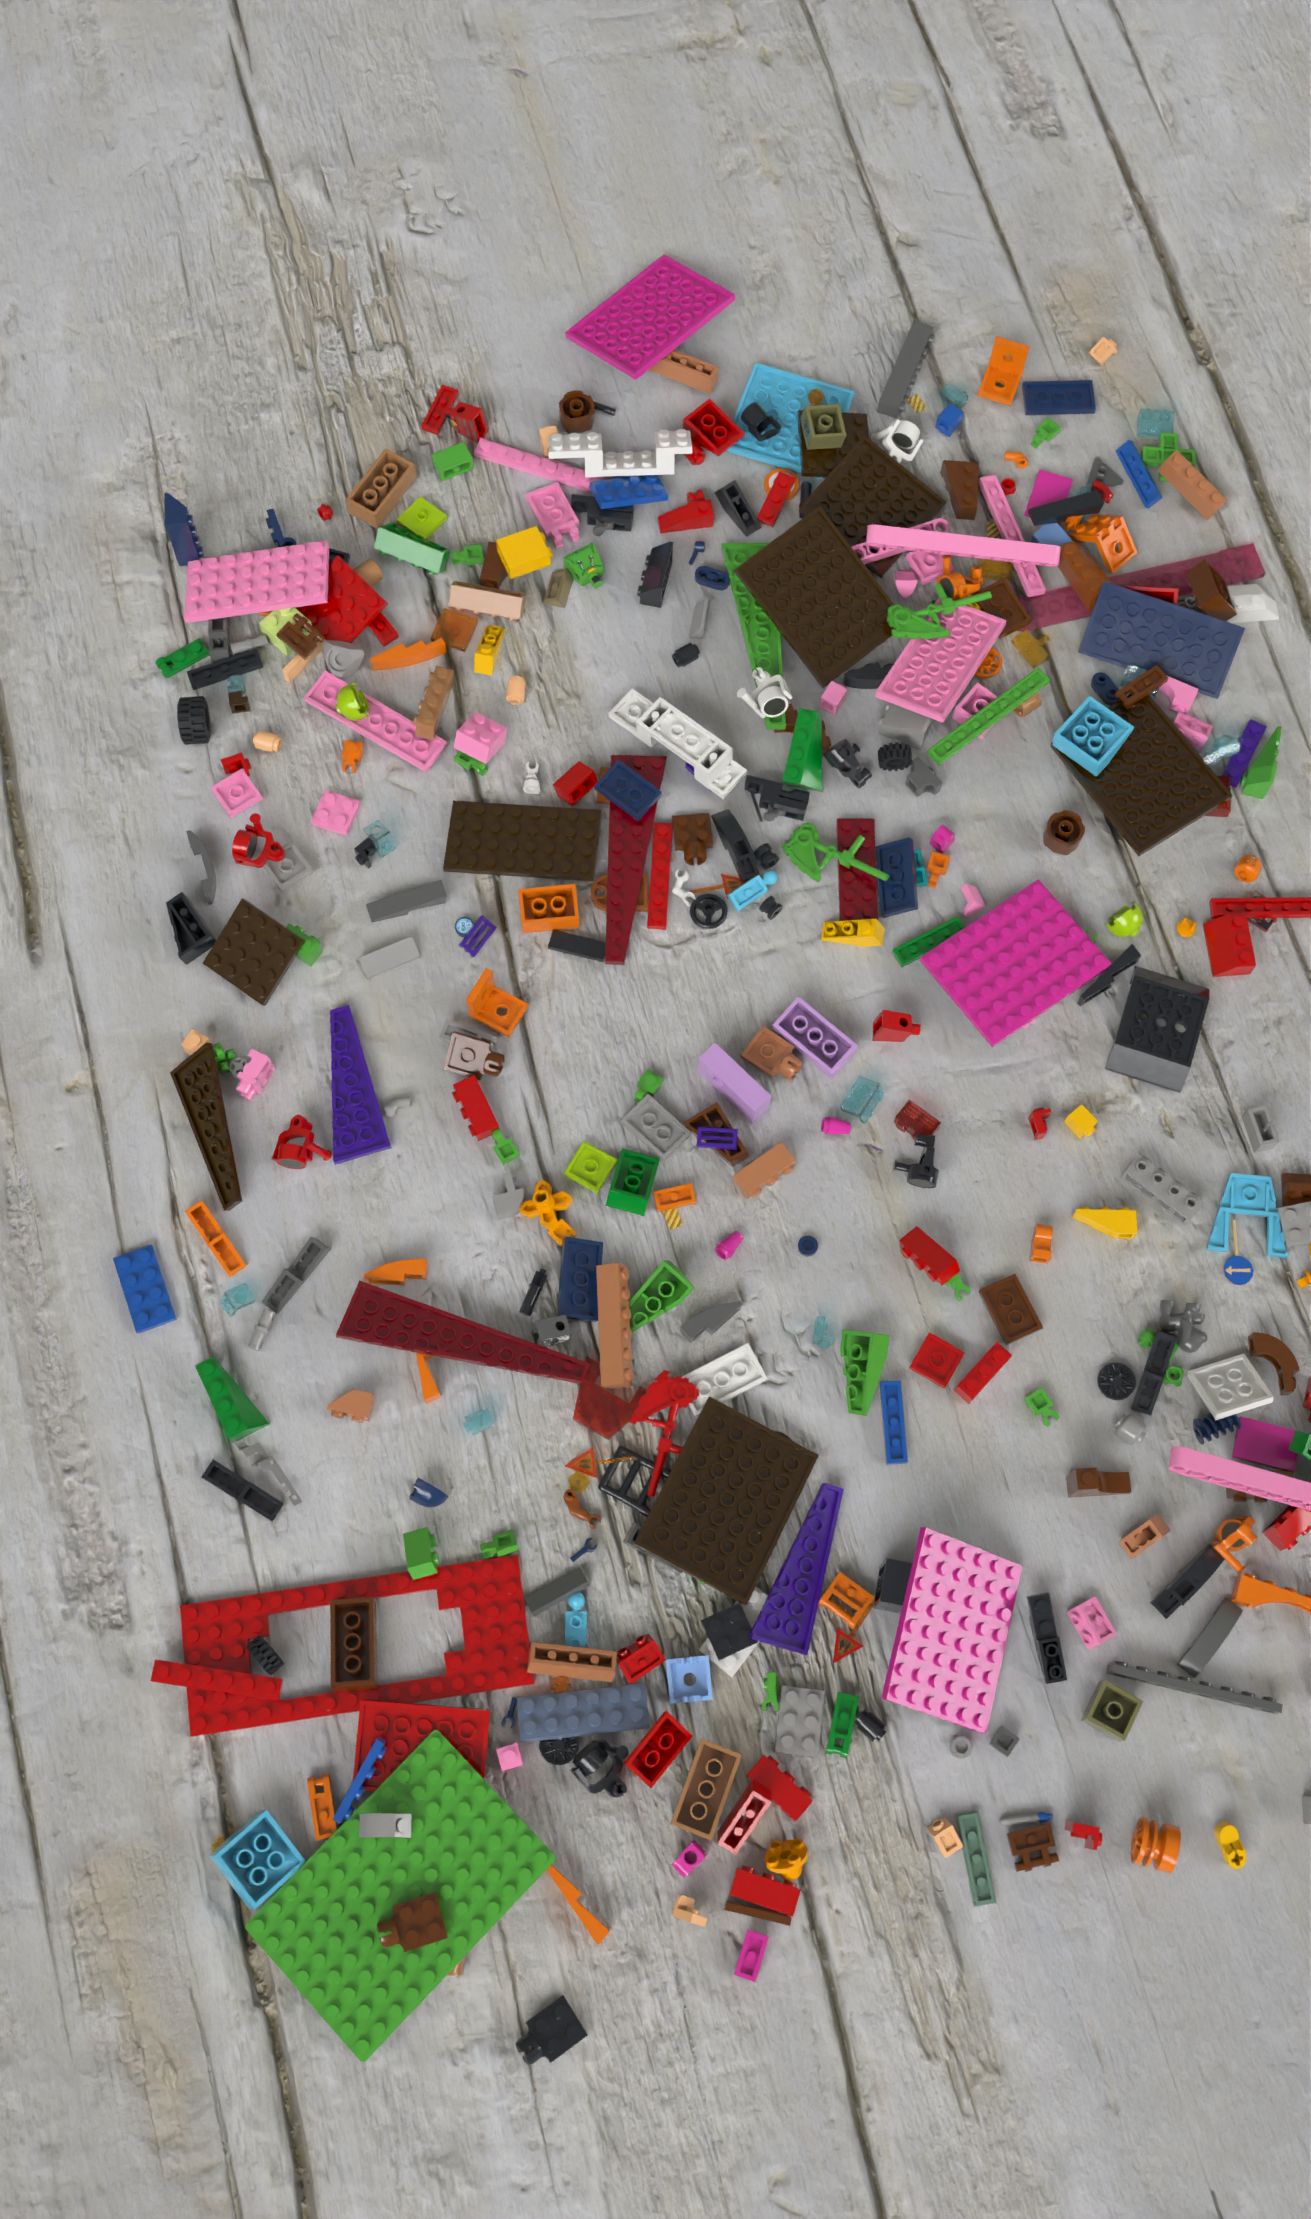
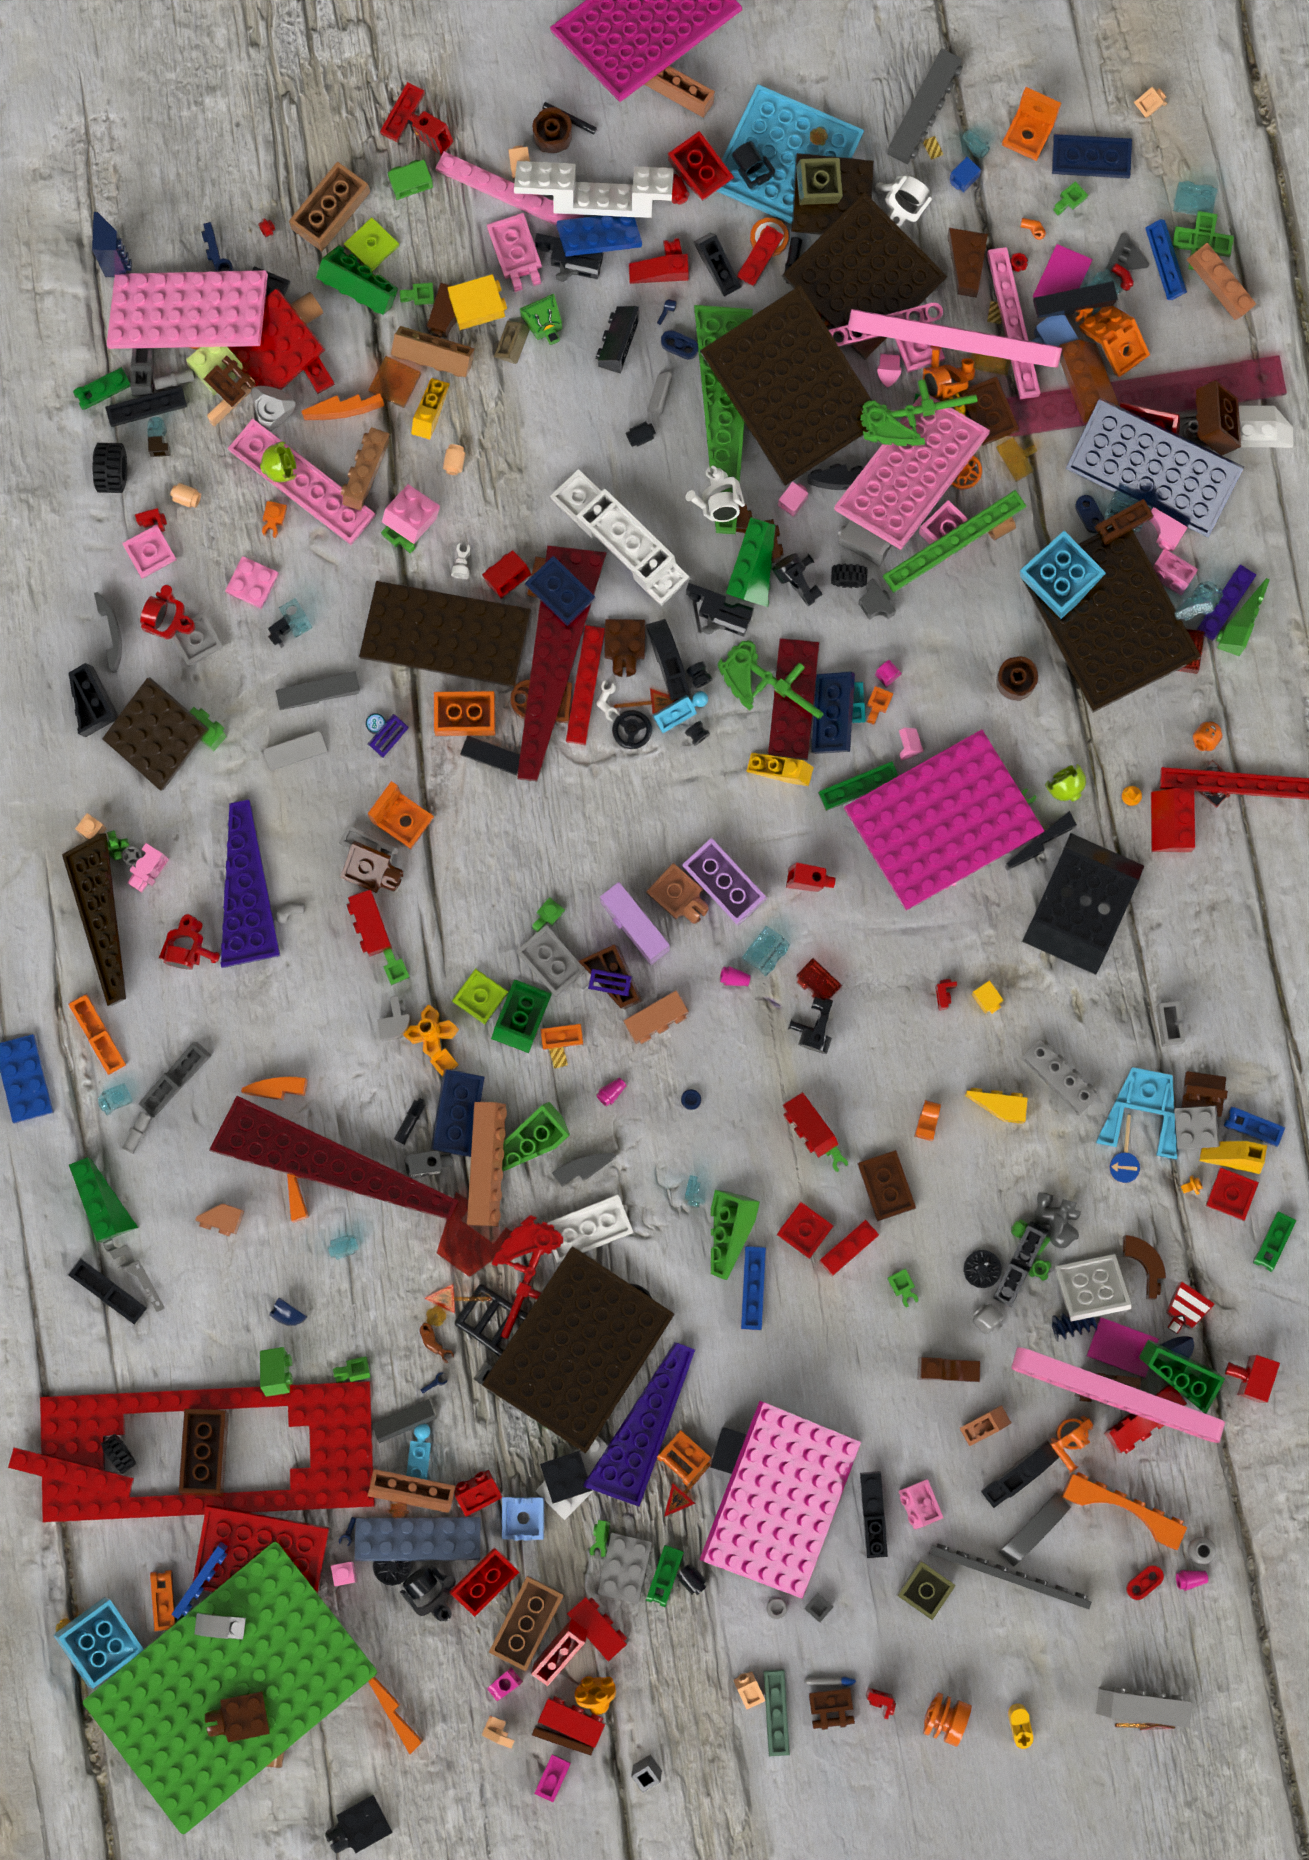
camera: 10 degrees right, 10 degrees up
(850, 1938) = (646, 1773): none -> black brick

